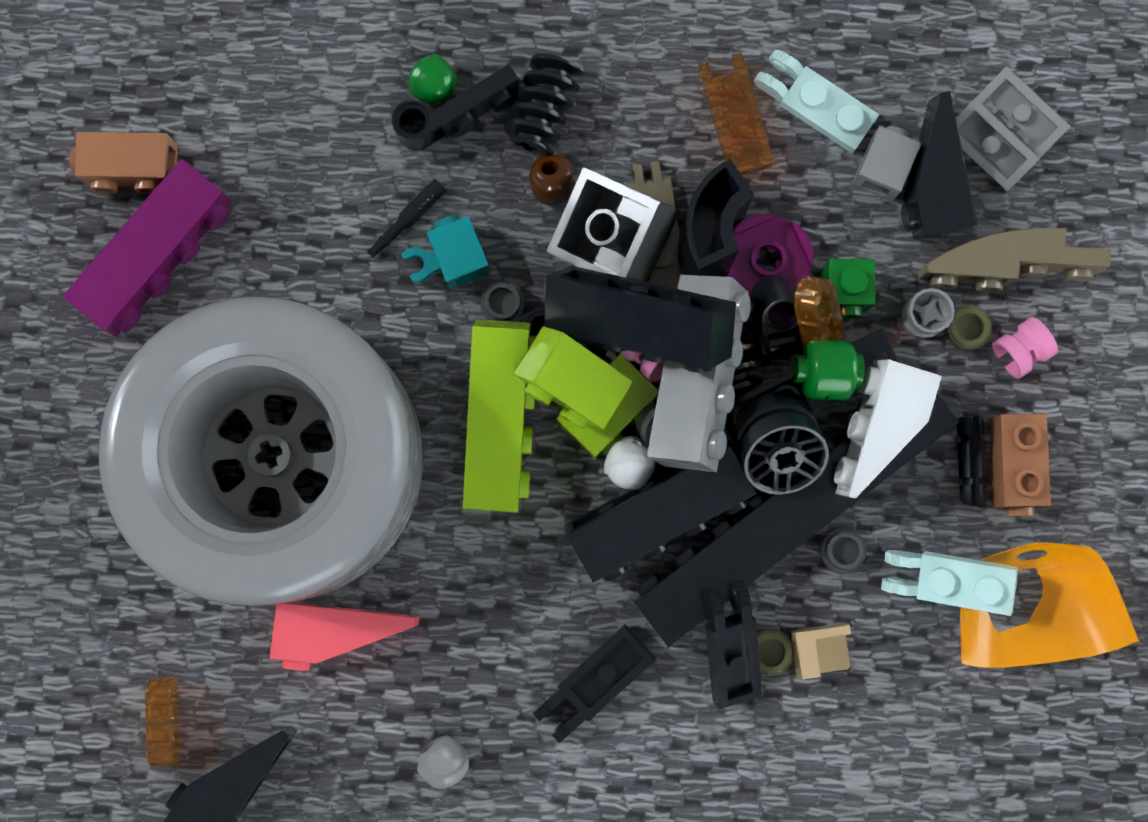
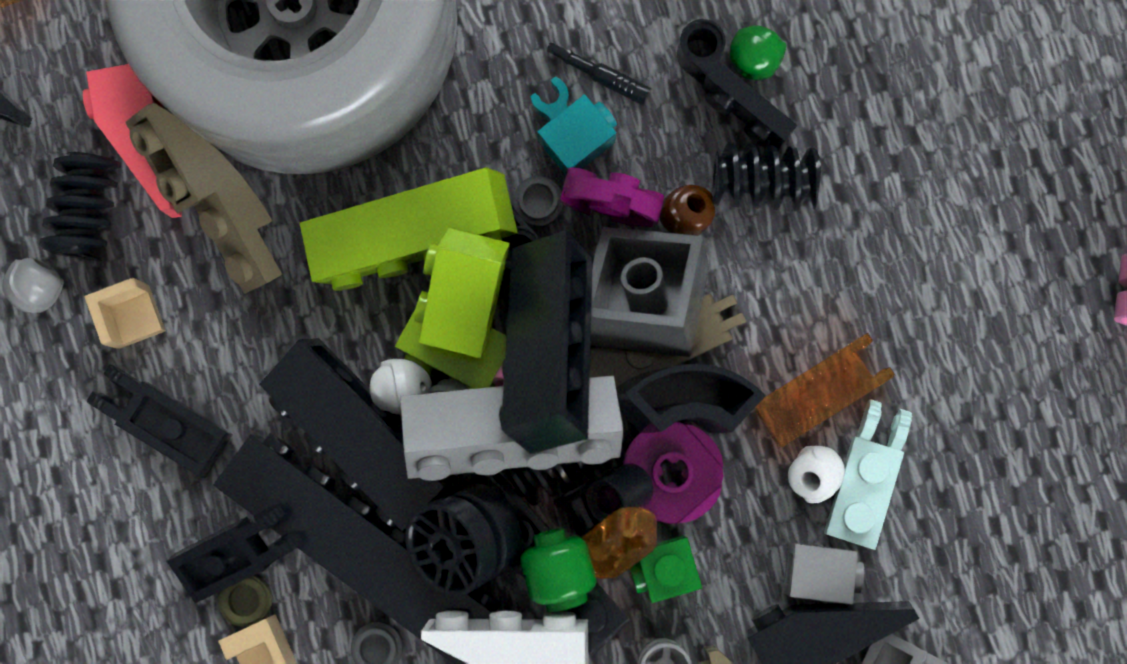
camera: 75 degrees right, 0 degrees up
(384, 700) = (78, 205): none -> black piece
(397, 582) = (200, 176): none -> dark tan slope
(494, 685) = (124, 313): none -> tan panel
(528, 228) = (613, 197): none -> magenta plate
(803, 141) = (816, 473): none -> white piece

